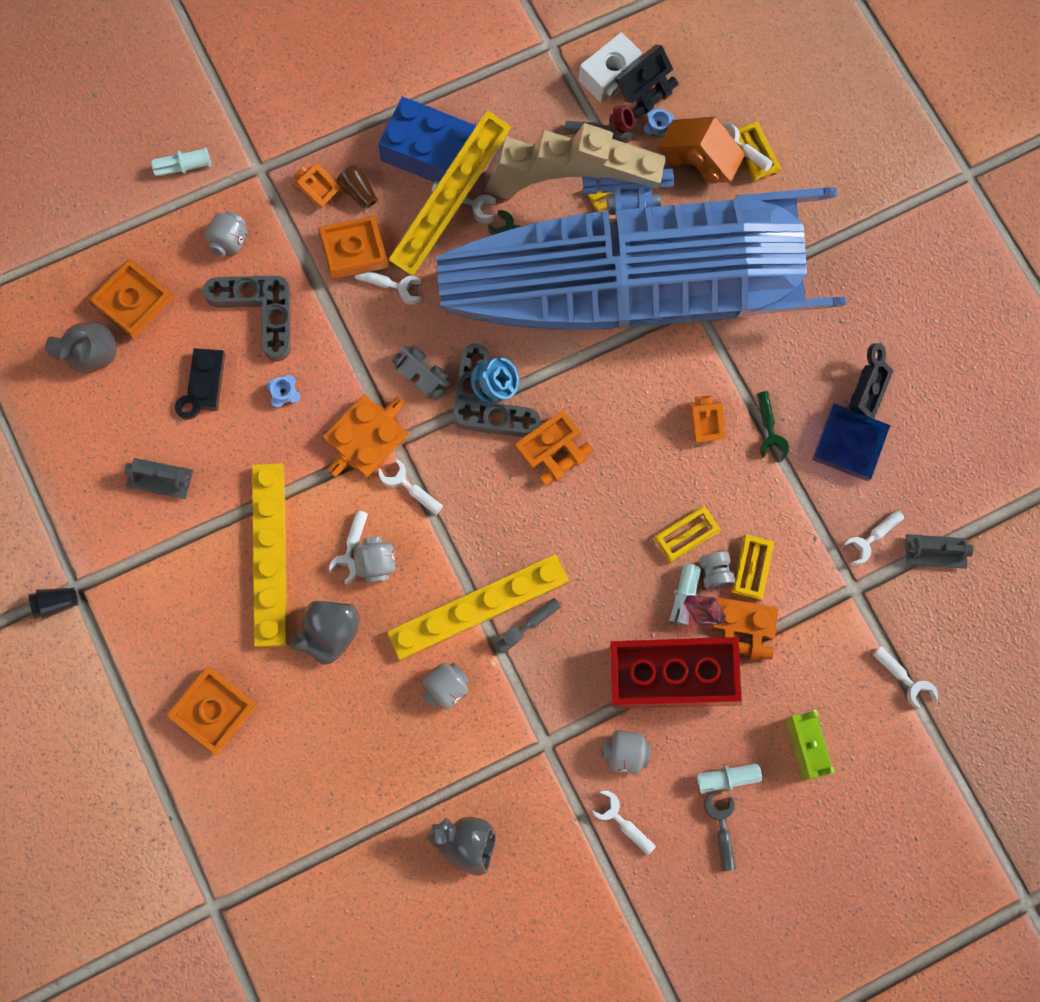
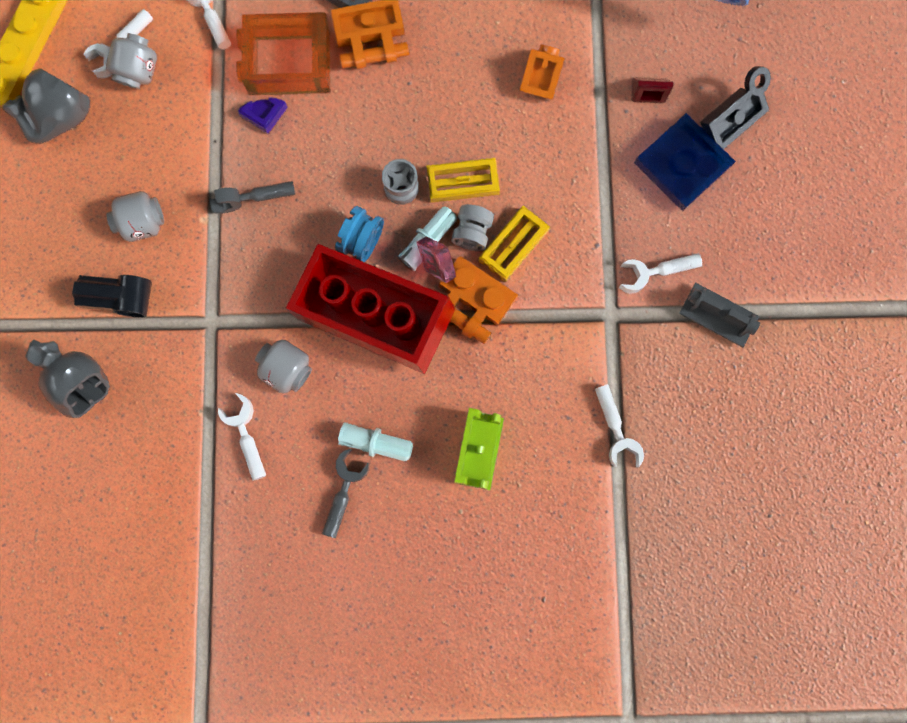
camera: 30 degrees right, 5 degrees up
(470, 756) = (123, 296): none -> black piece
(477, 607) = (212, 157): yellow plate -> none
(499, 552) = (263, 112): none -> dark purple tile
(524, 481) = (284, 26): none -> clear orange window
(634, 617) = (359, 234): none -> dark azure wheel
(644, 554) = (400, 174): none -> light grey wheel
(768, 422) = (608, 104): dark green piece -> none
(795, 393) = (651, 90): none -> dark red slope

